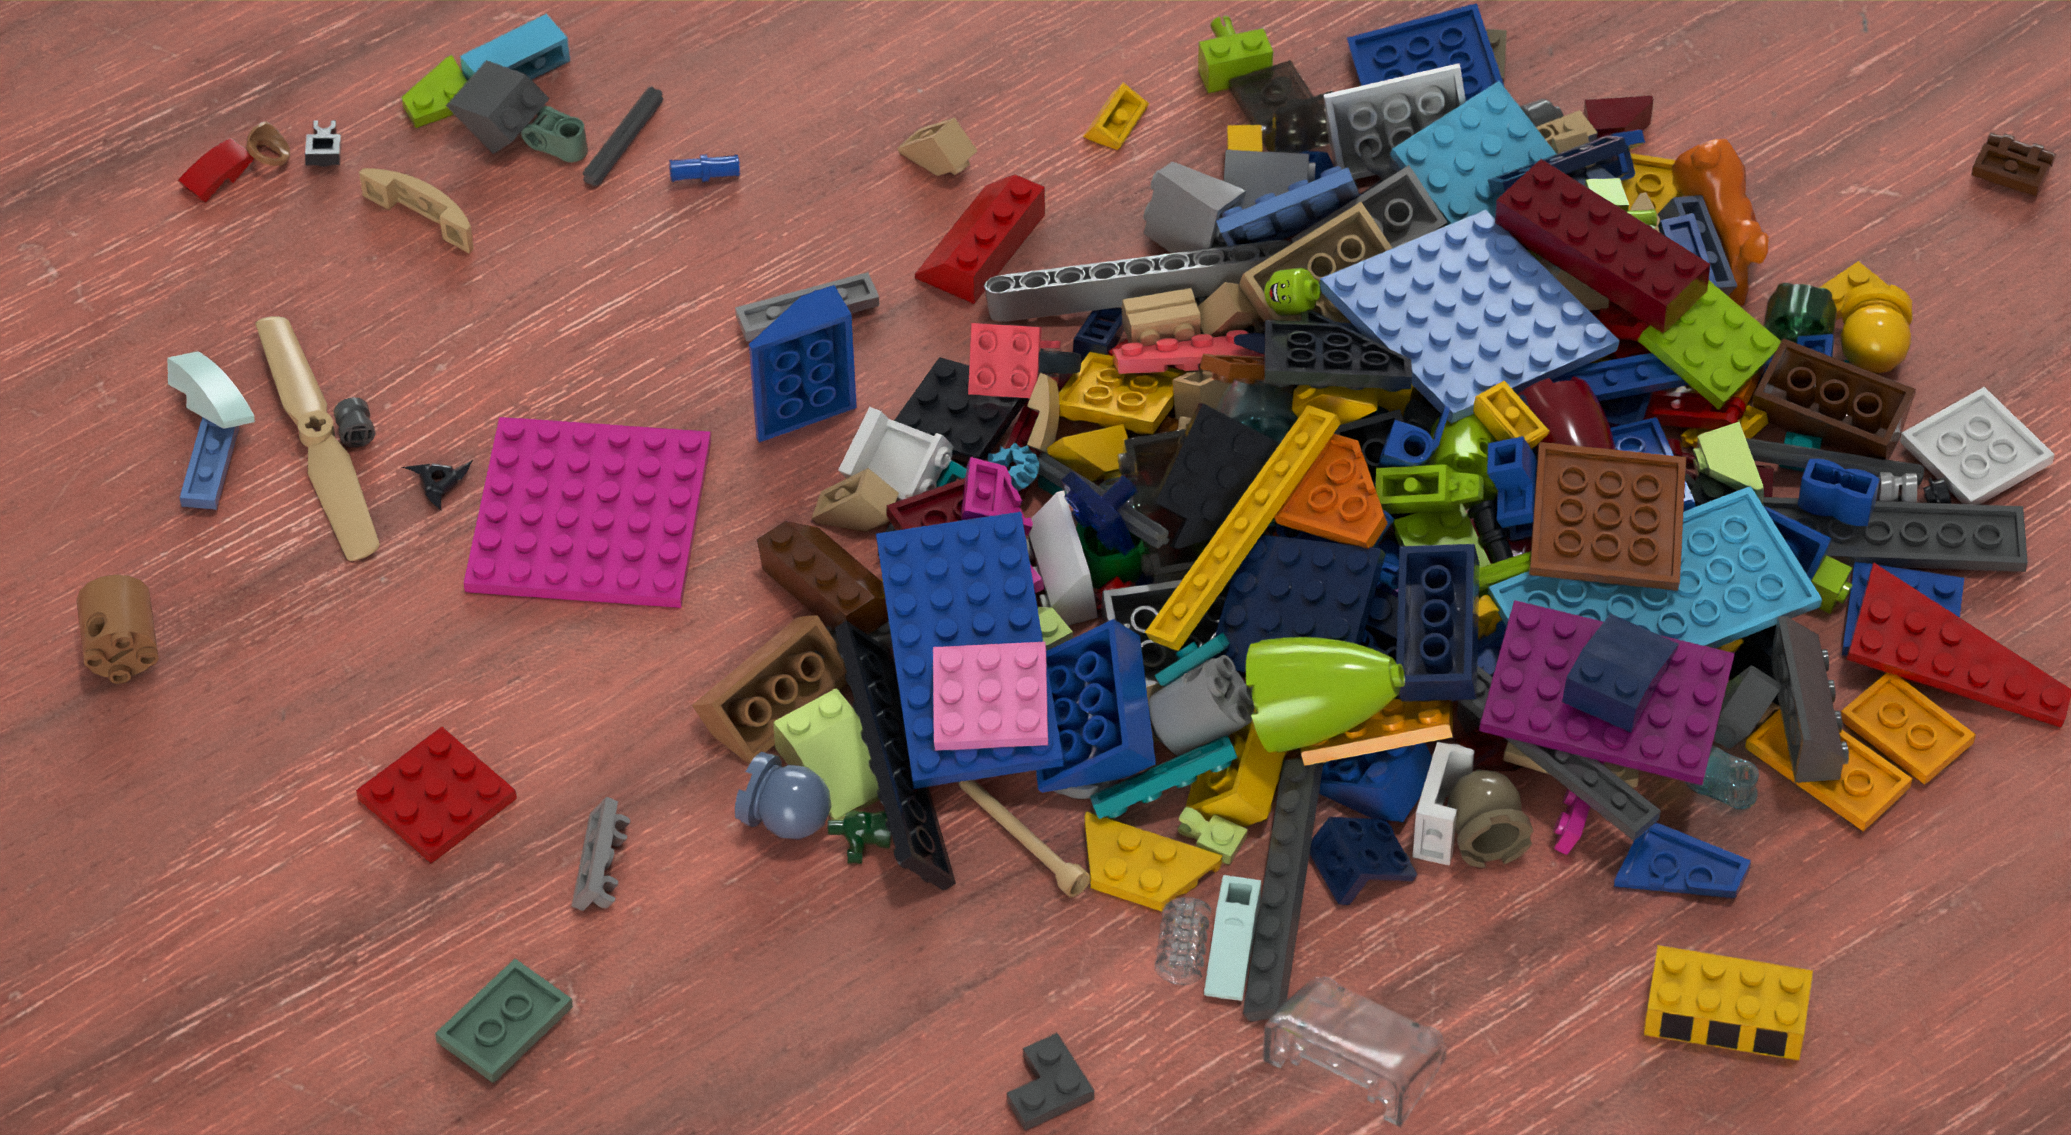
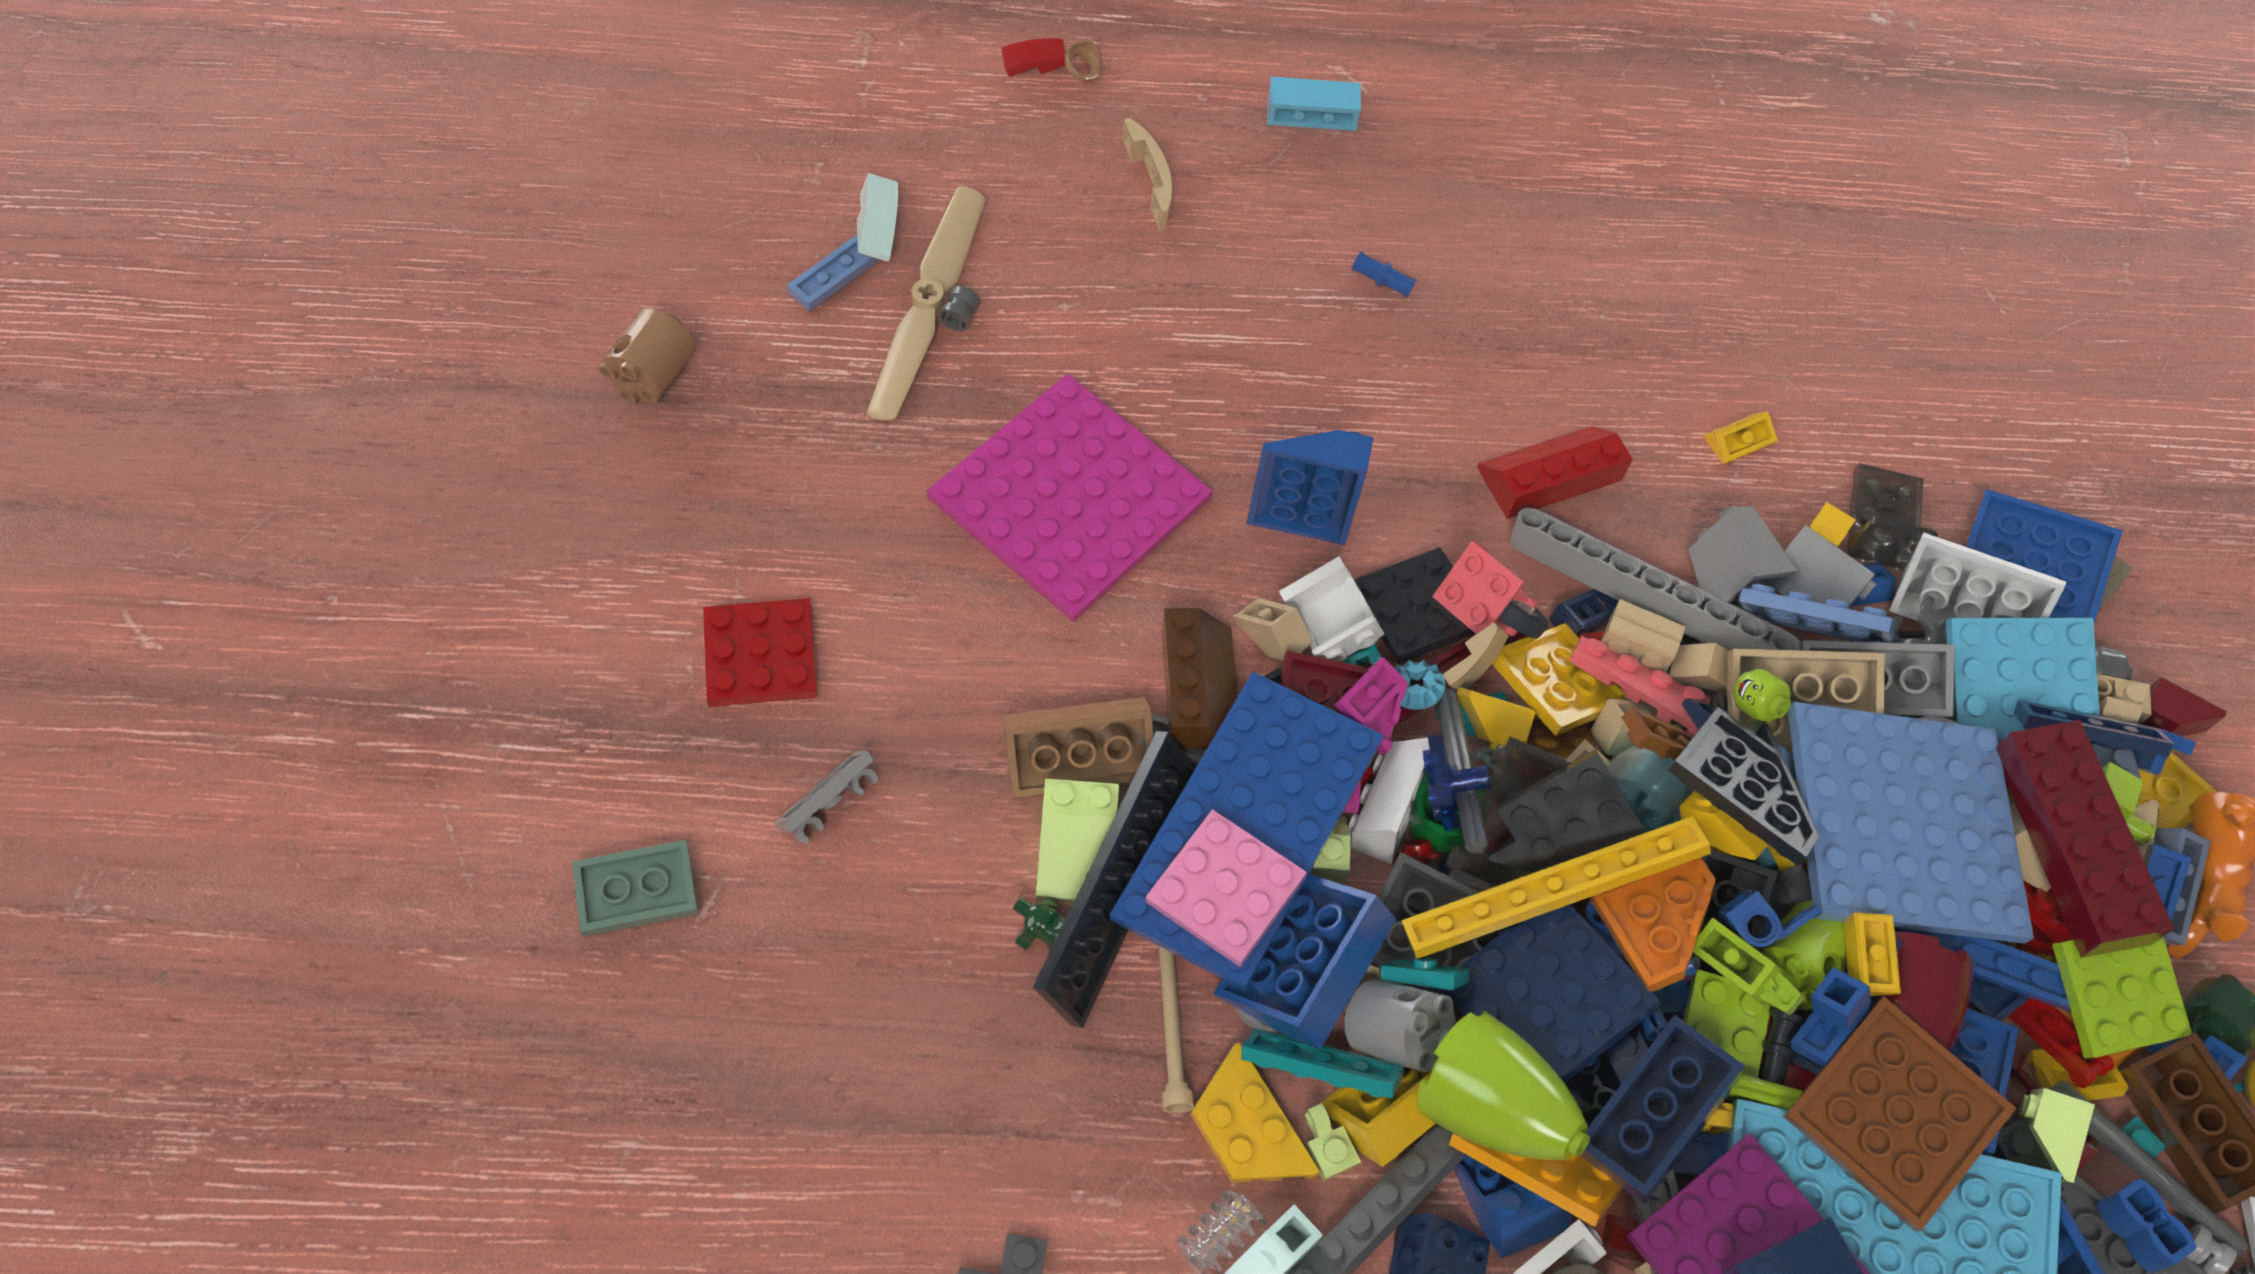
camera: 30 degrees right, 10 degrees up
(323, 146) = (1122, 86): plate -> none
(428, 98) = (1238, 98): lime wing -> none
(450, 476) = (980, 383): black piece -> none
(497, 104) = (1266, 128): dark grey slope -> none
(558, 135) = (1295, 181): sand green piece -> none
(622, 136) = (1344, 212): dark grey axle -> none
(786, 798) = (999, 853): sand blue tile -> none
(856, 292) = (1389, 440): light grey plate -> none
(939, 148) = (1577, 373): tan slope -> none
(1231, 54) = (1877, 443): lime brick -> none

